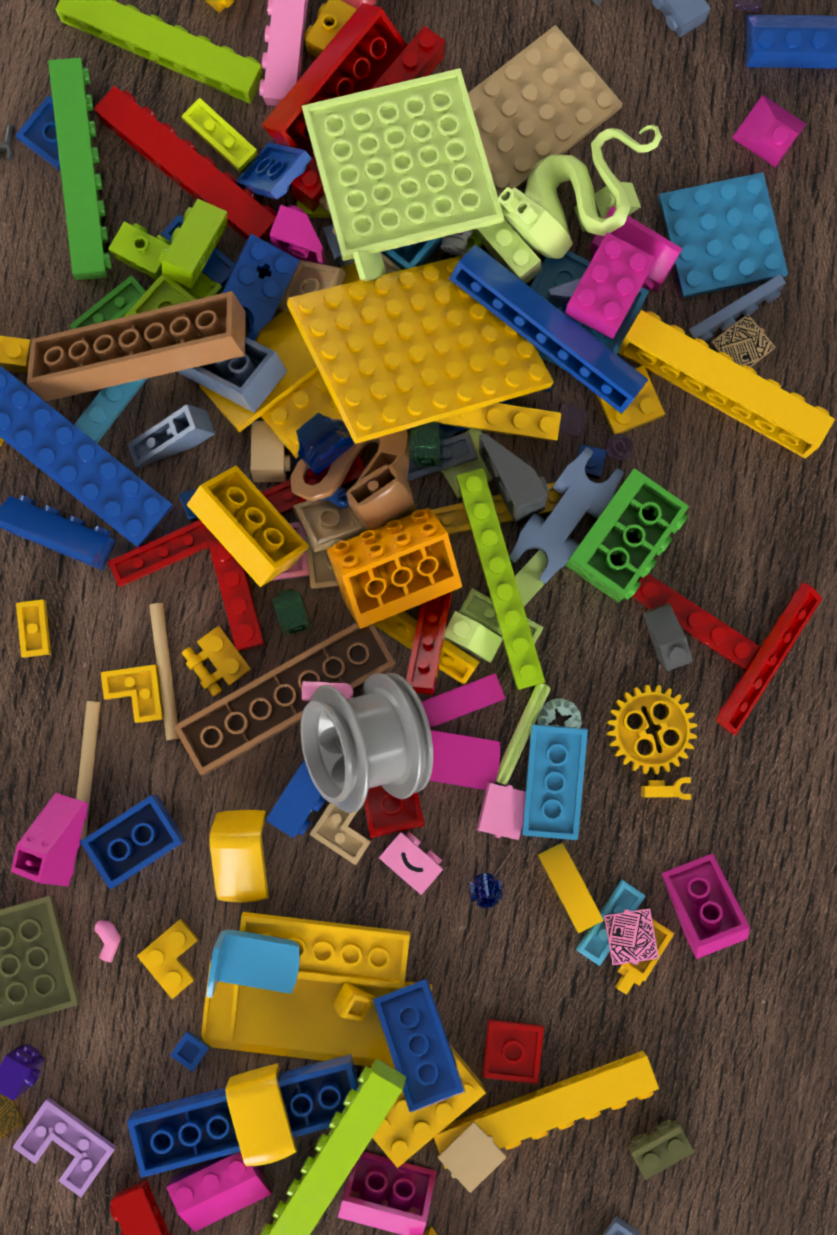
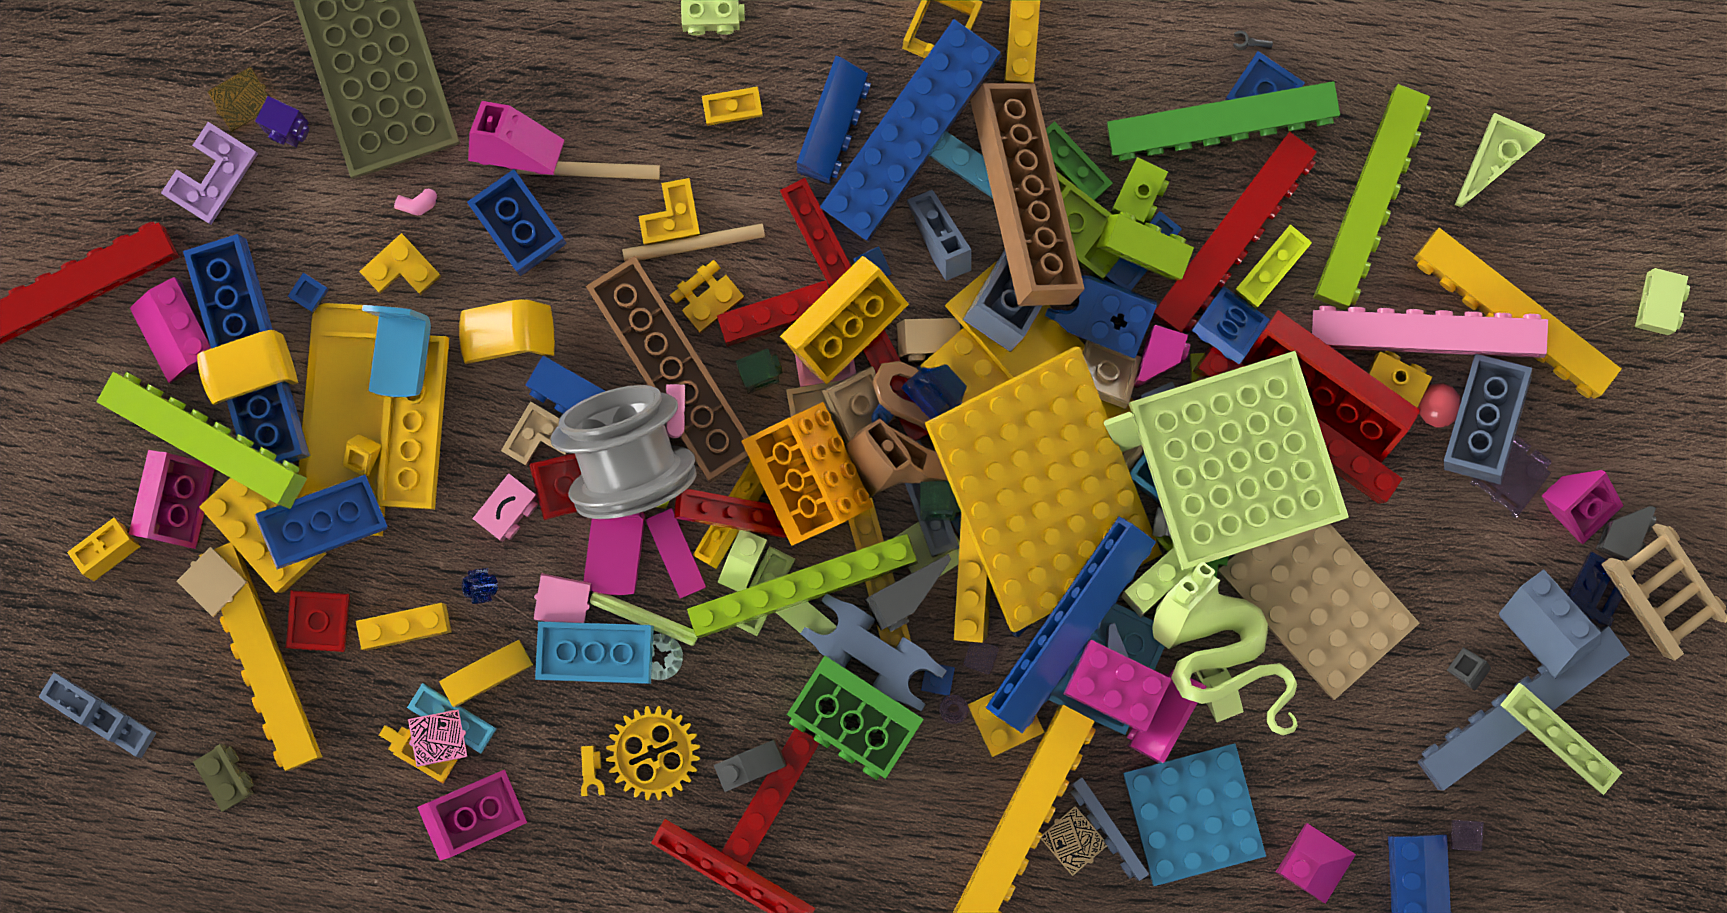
camera: 80 degrees right, 0 degrees up
(522, 966) = (403, 626): none -> yellow brick

